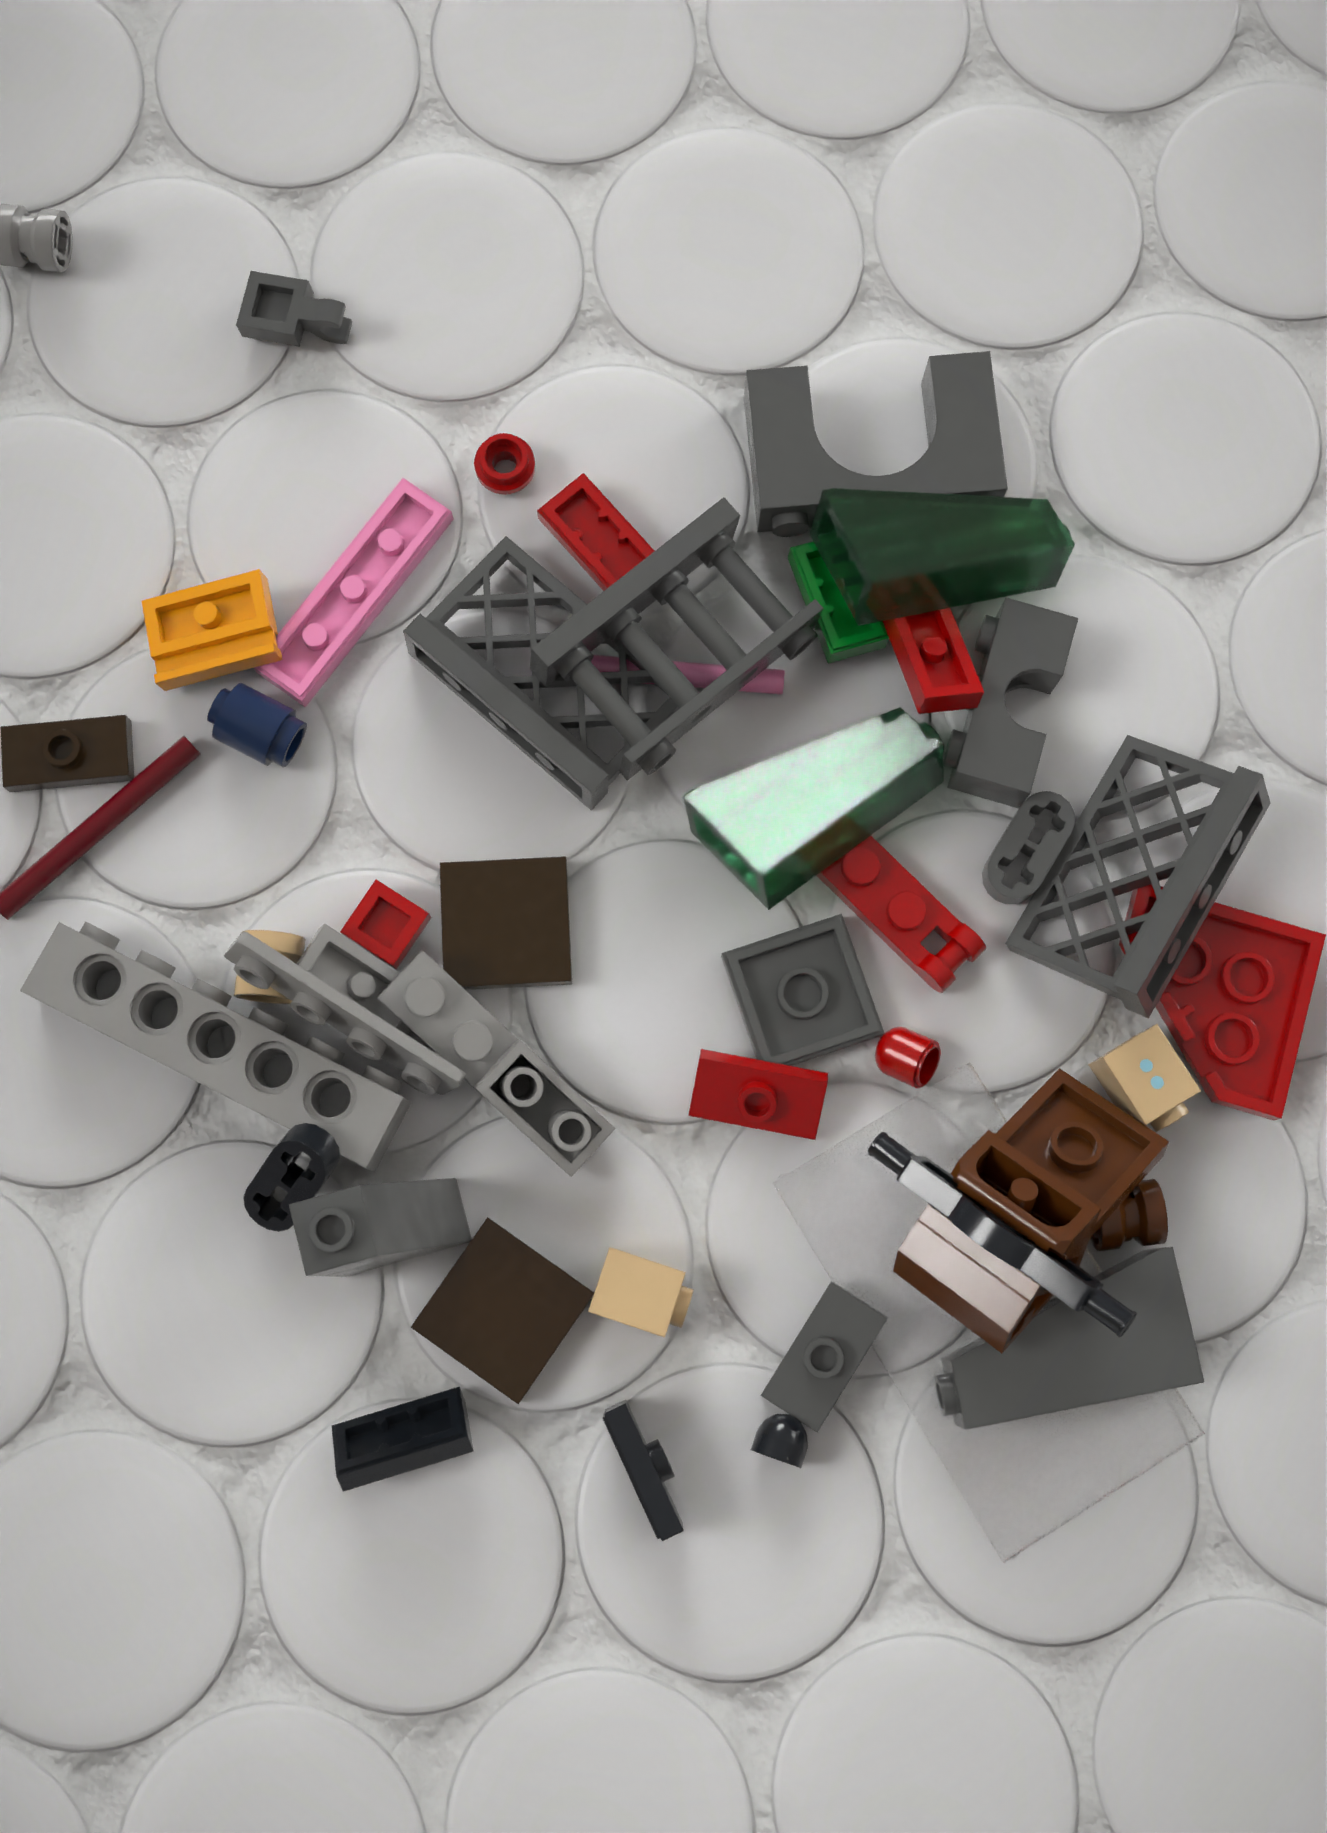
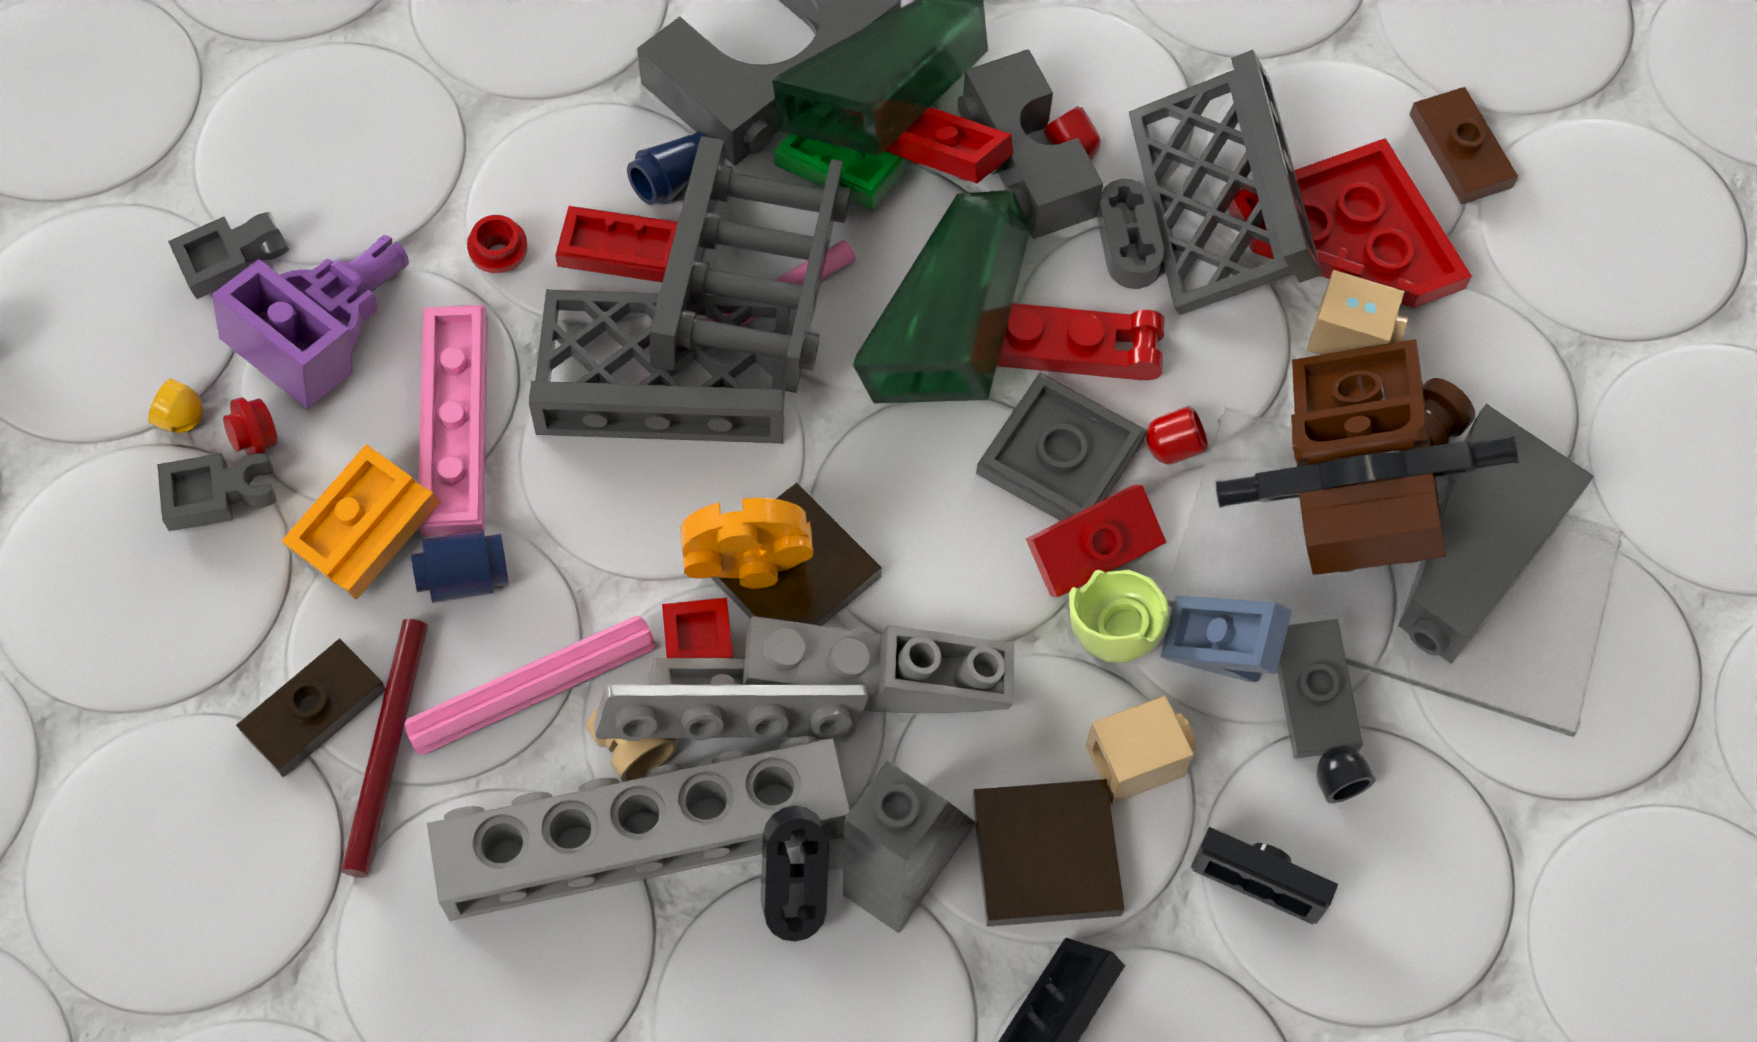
camera: 40 degrees left, 15 degrees down
(123, 511) = (204, 488): none -> dark grey plate
(153, 423) = (175, 407): none -> yellow hinge
(192, 483) = (250, 426): none -> red plate
(235, 862) = (529, 685): none -> bright pink axle
(304, 422) = (304, 321): none -> medium lavender brick
(471, 892) = (746, 543): none -> light orange plate
(687, 494) = (663, 169): none -> dark blue cone
(717, 1171) = (1119, 615): none -> yellowish green hair
(784, 1260) = (1227, 636): none -> sand blue slope
(1062, 720) = (1074, 125): none -> red piece

